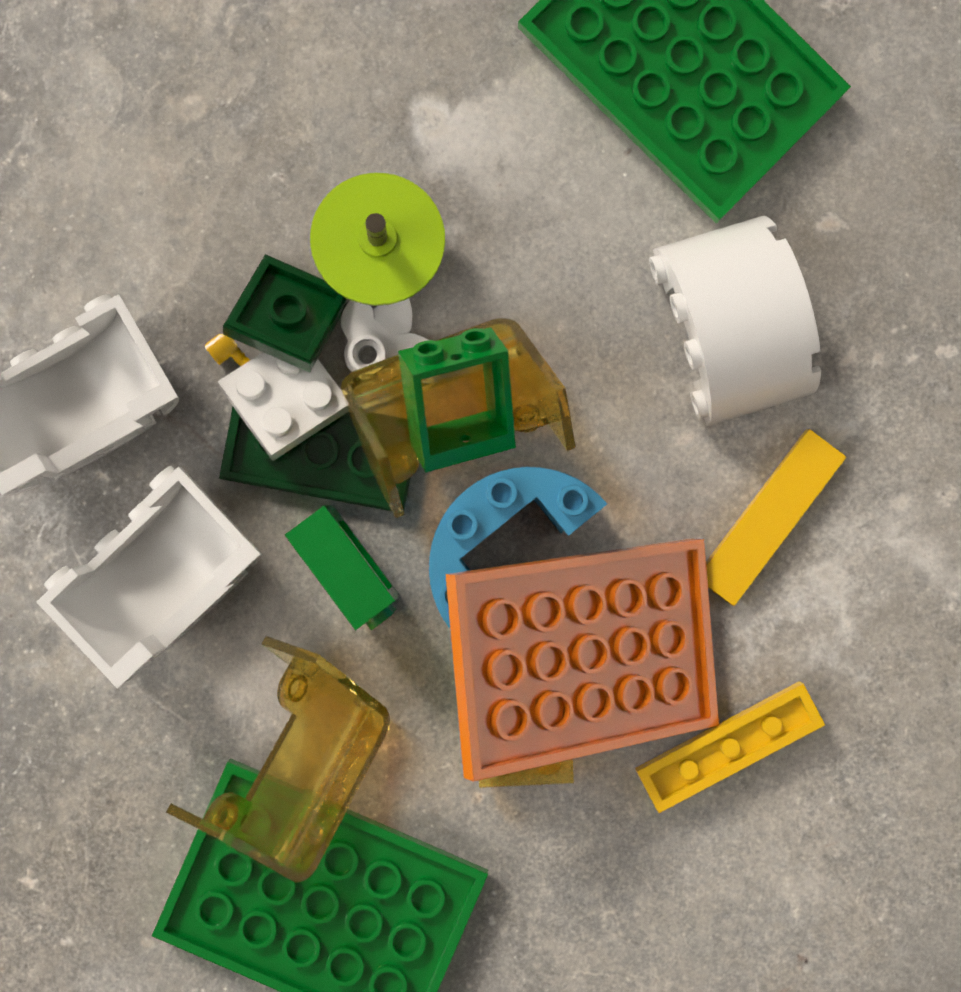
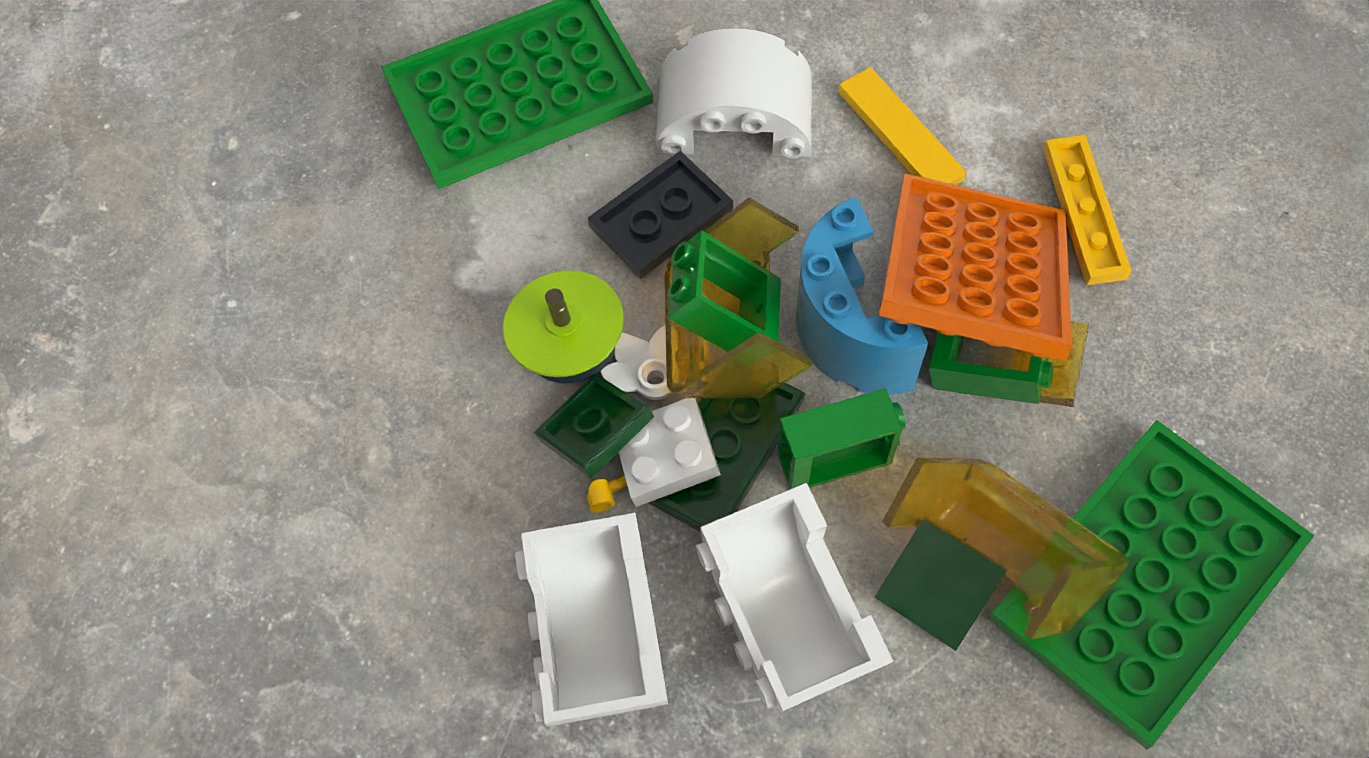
camera: 65 degrees left, 25 degrees down
(238, 707) = (940, 583): none -> dark green tile
(566, 287) = (660, 213): none -> black plate

